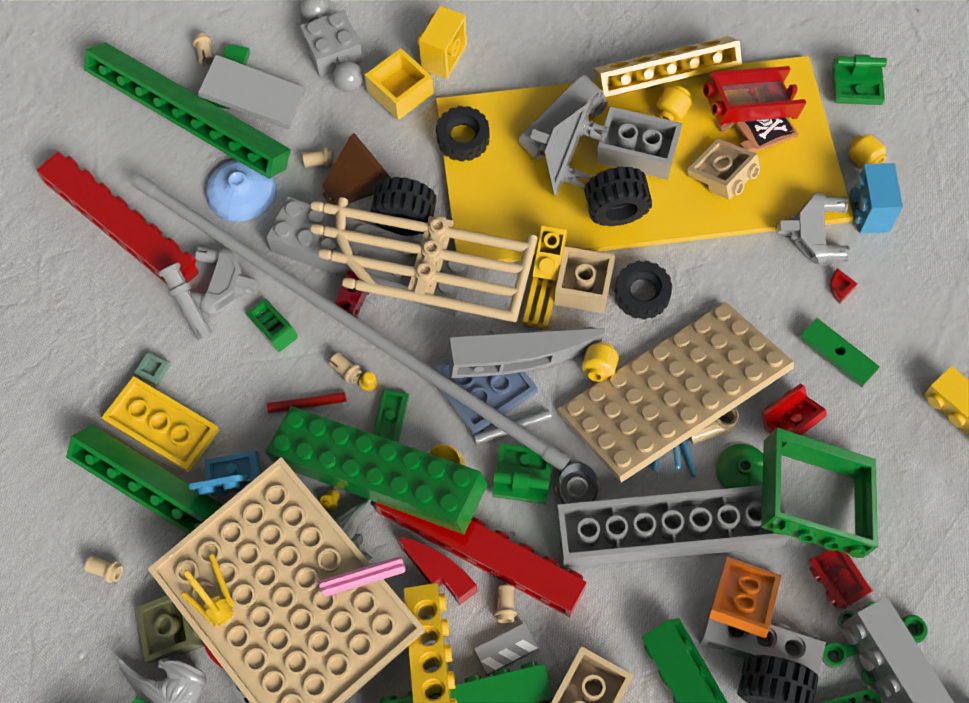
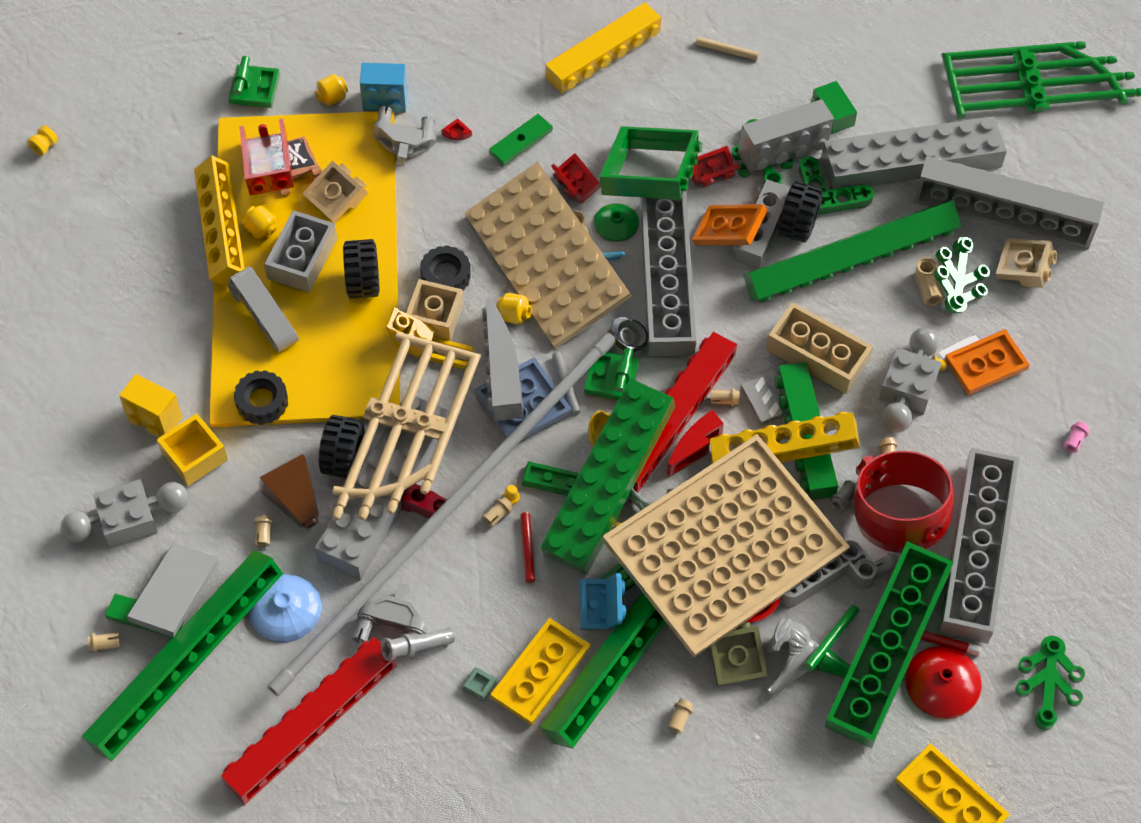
camera: 90 degrees left, 5 degrees down
(217, 609) = (734, 588): yellow plant -> none
(280, 337) = (455, 578): green slope -> none
(362, 576) = (714, 474): bright pink axle -> none
(561, 144) = (300, 305): light grey connector -> none

